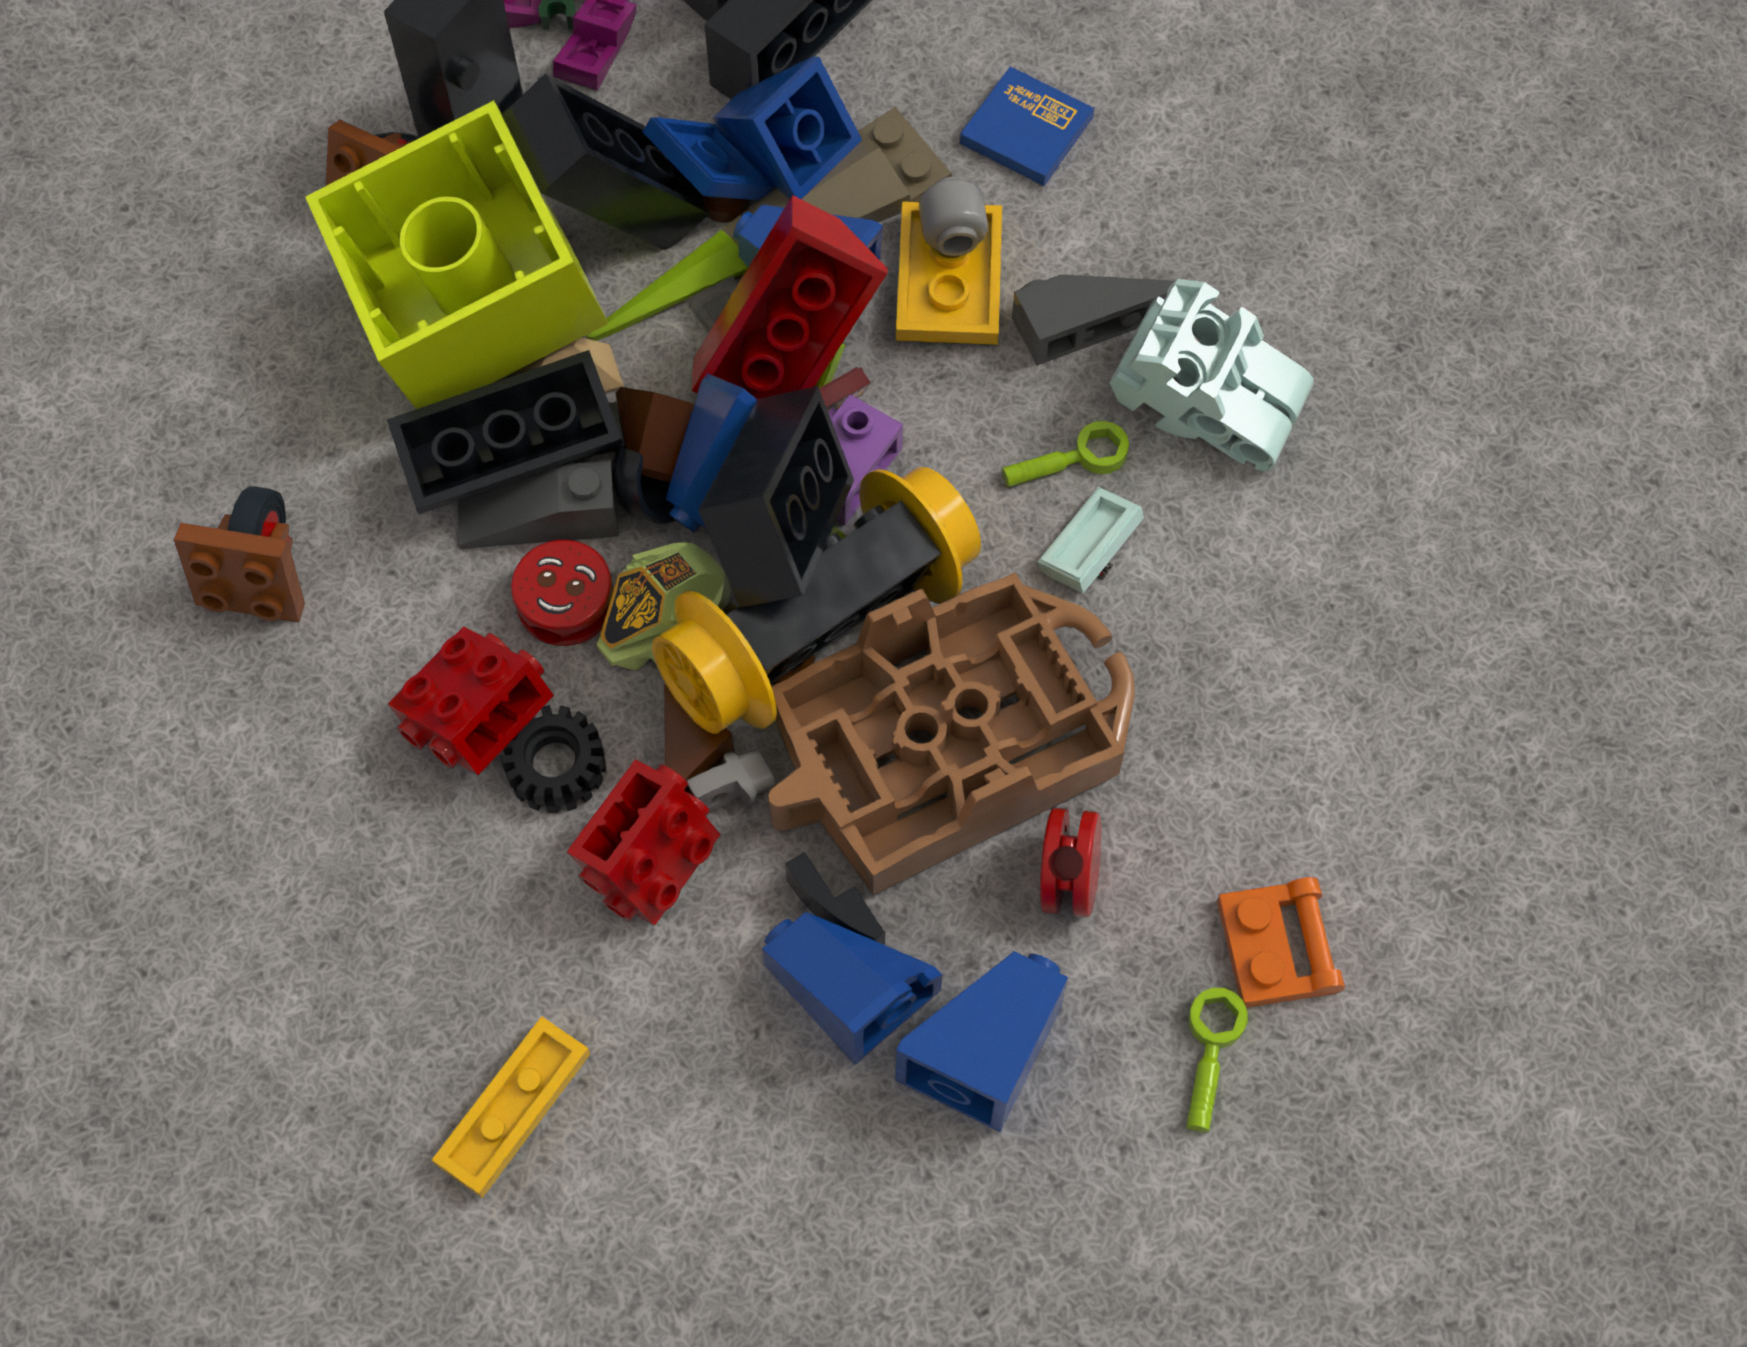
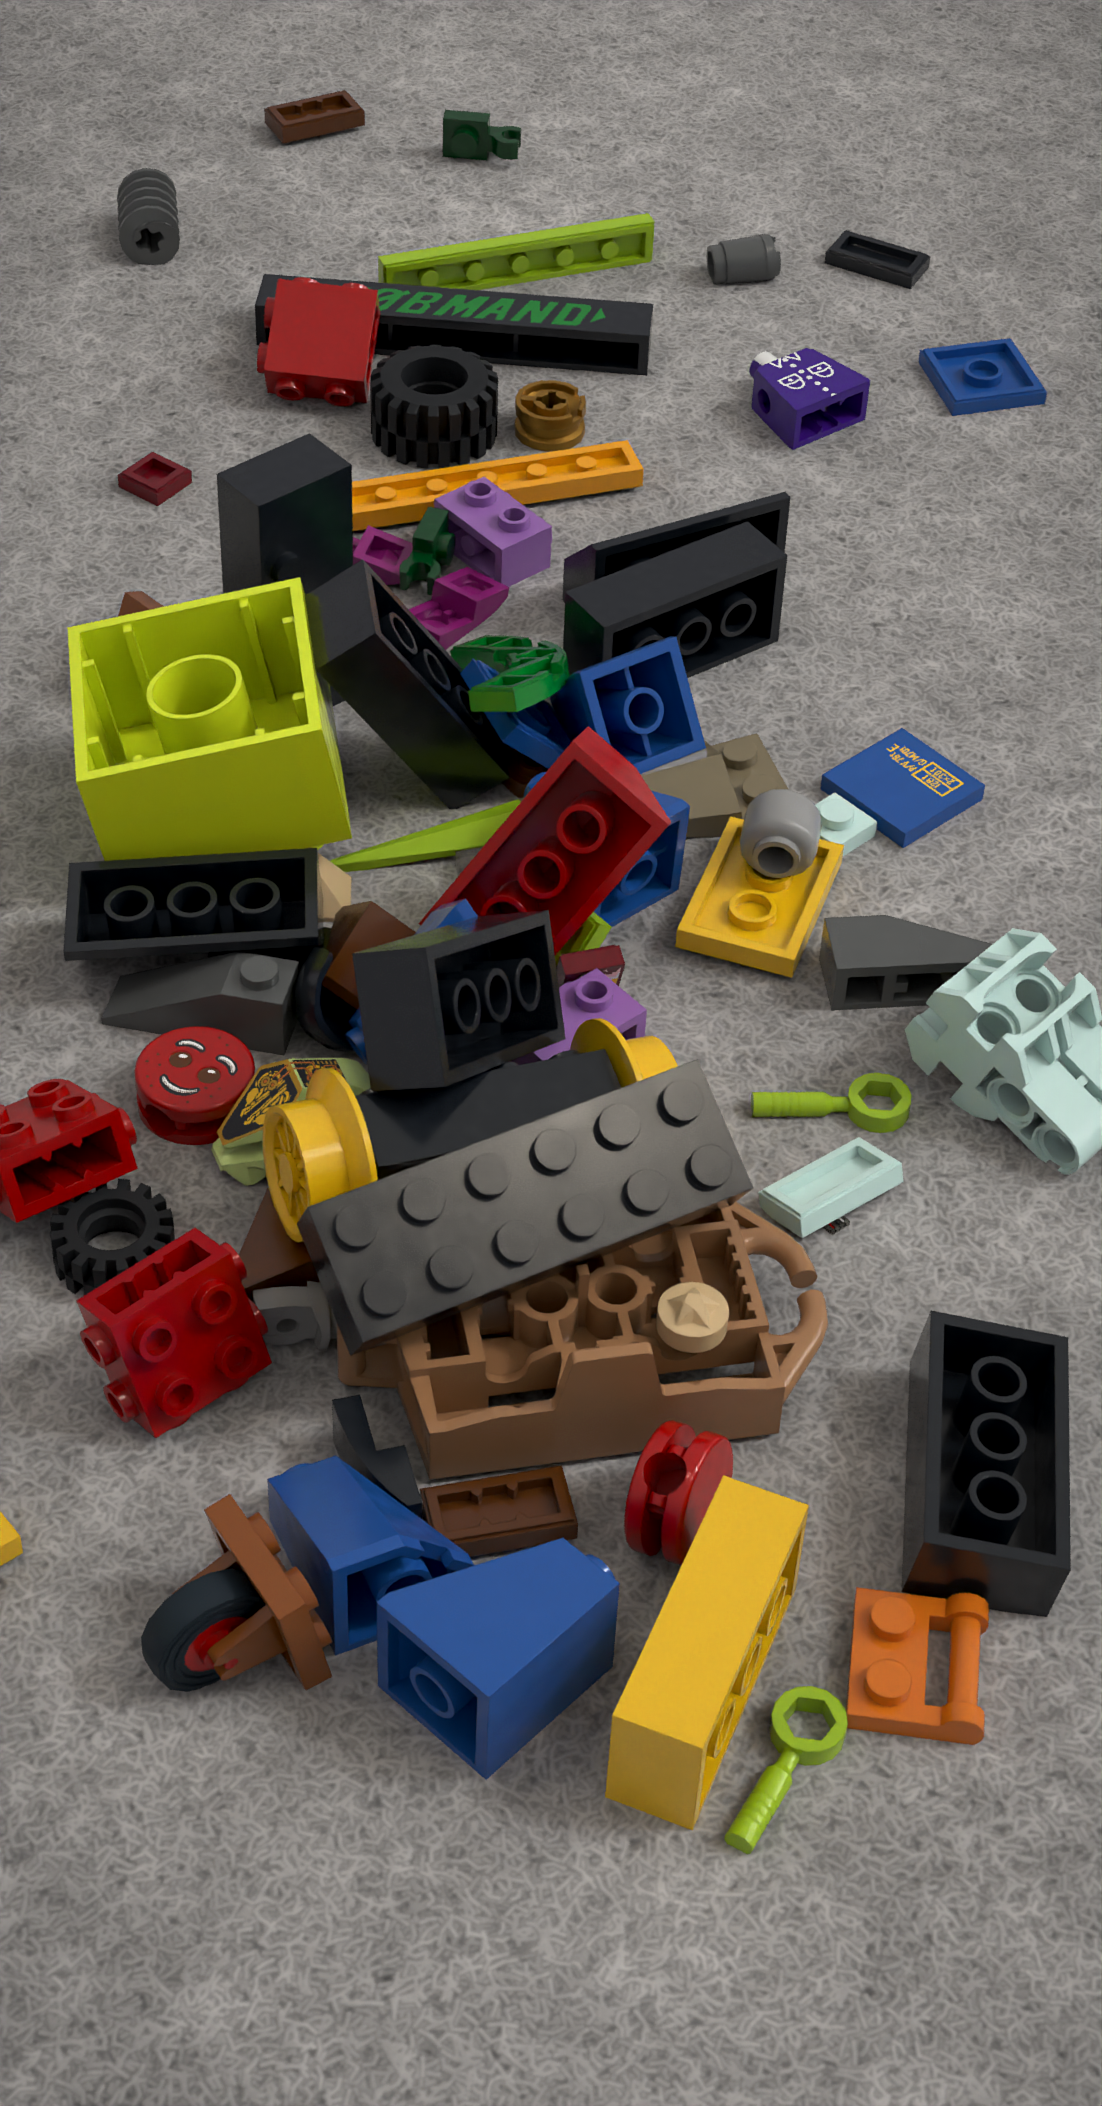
camera: 15 degrees right, 20 degrees down
(699, 102) = (525, 671): none -> green tile
(781, 1068) = (237, 1612): none -> plate
(891, 673) = (522, 1206): none -> black brick
(938, 911) = (502, 1511): none -> reddish brown plate
(991, 176) = (844, 823): none -> light aqua plate
(1040, 717) = (692, 1317): none -> tan tile
(1137, 993) = (705, 1653): none -> yellow brick
(1286, 763) = (987, 1465): none -> black brick

